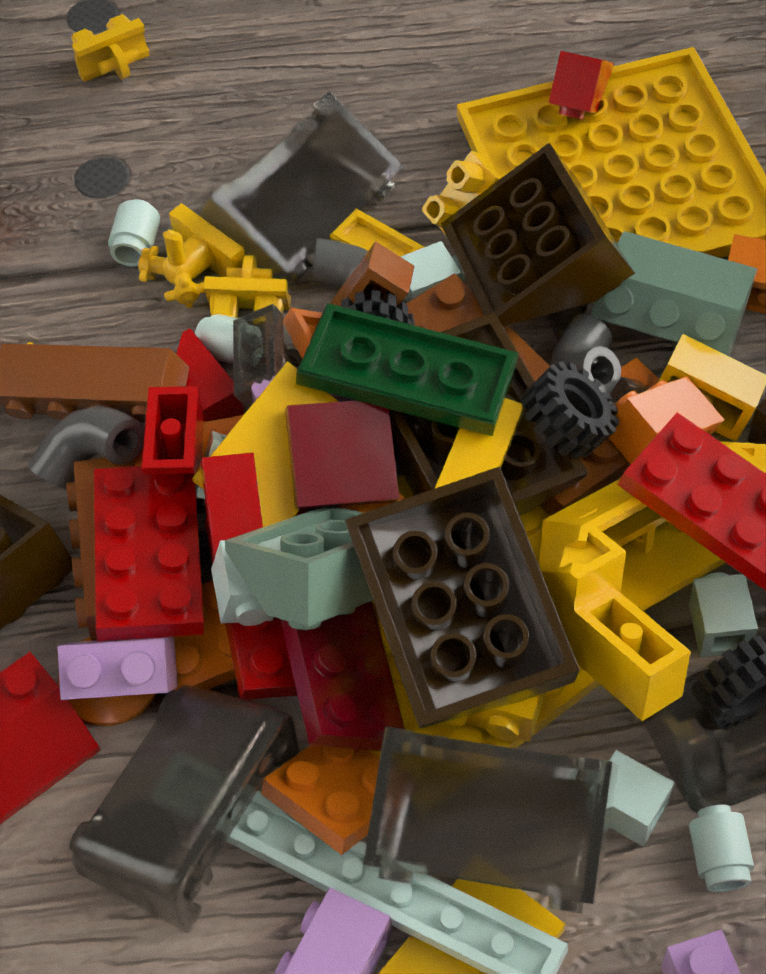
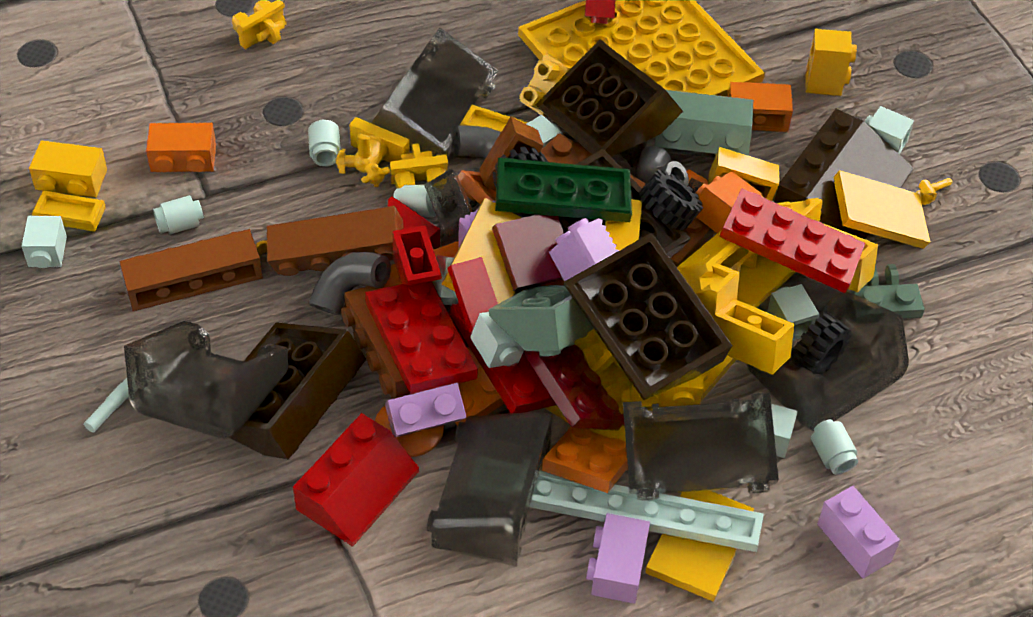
camera: 20 degrees left, 5 degrees down
(401, 466) = (582, 247): none -> lavender brick

